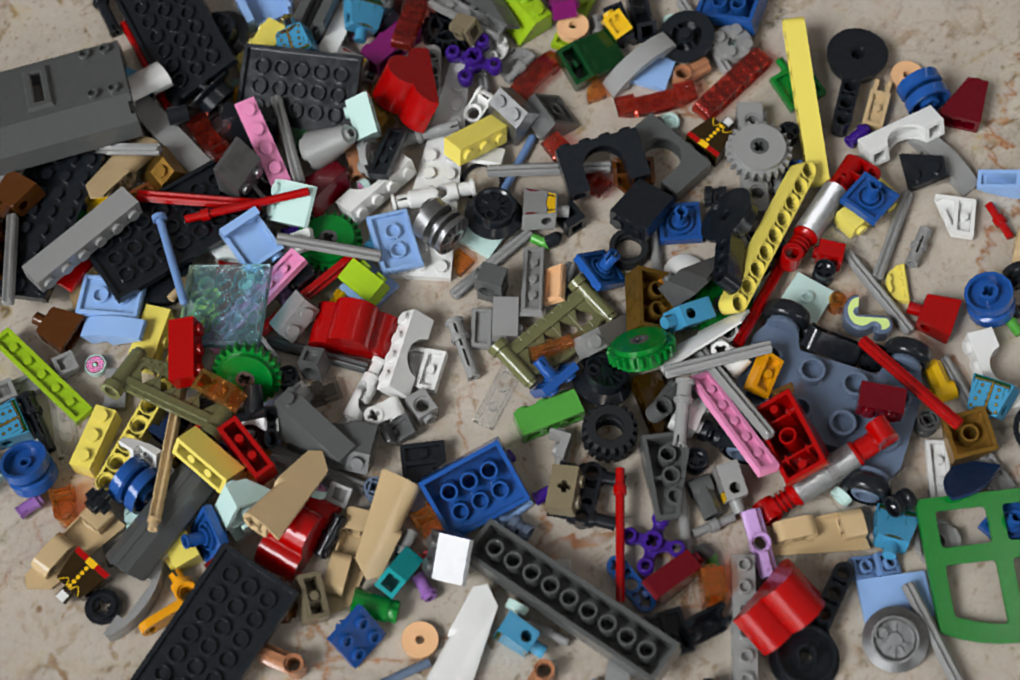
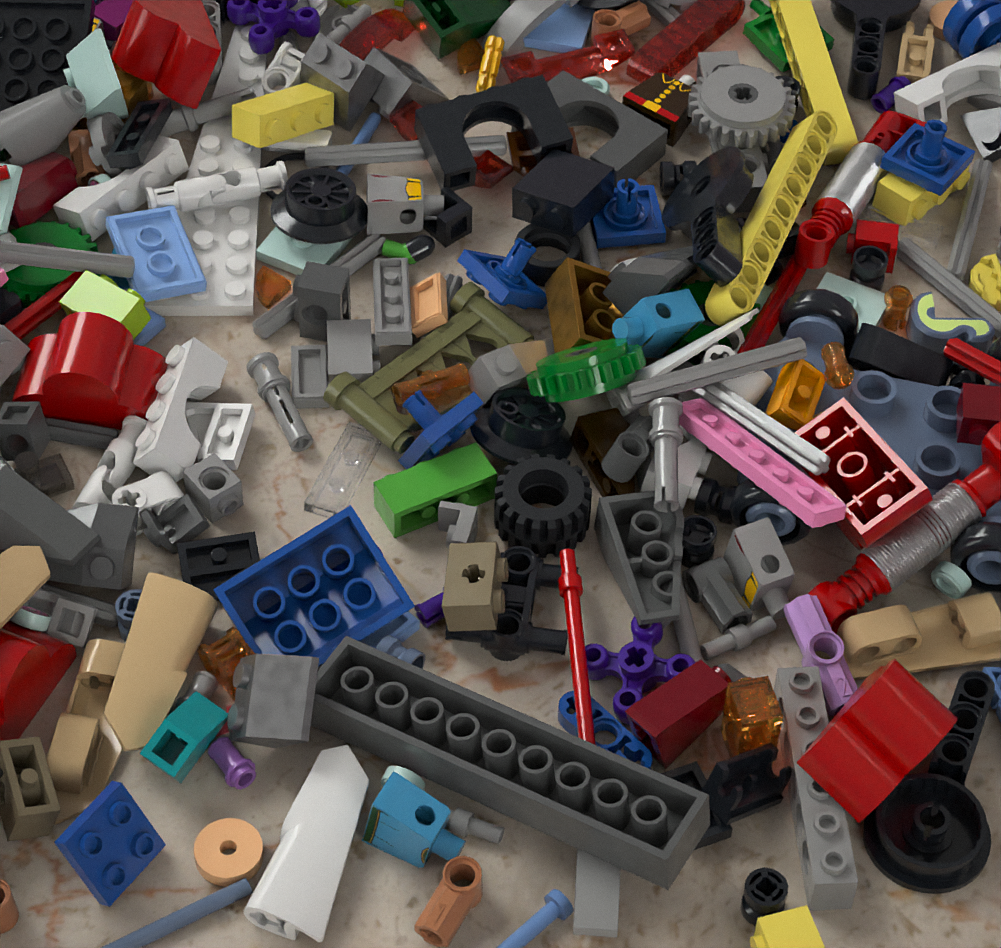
camera: 10 degrees left, 15 degrees down
(330, 535) = (56, 688): black pin -> none
(378, 606) = (156, 796): green plant -> none
(440, 226) = (231, 222): flat silver wheel -> none
(606, 102) = (490, 63): none -> yellow axle
(790, 360) = (838, 371): none -> clear orange pin

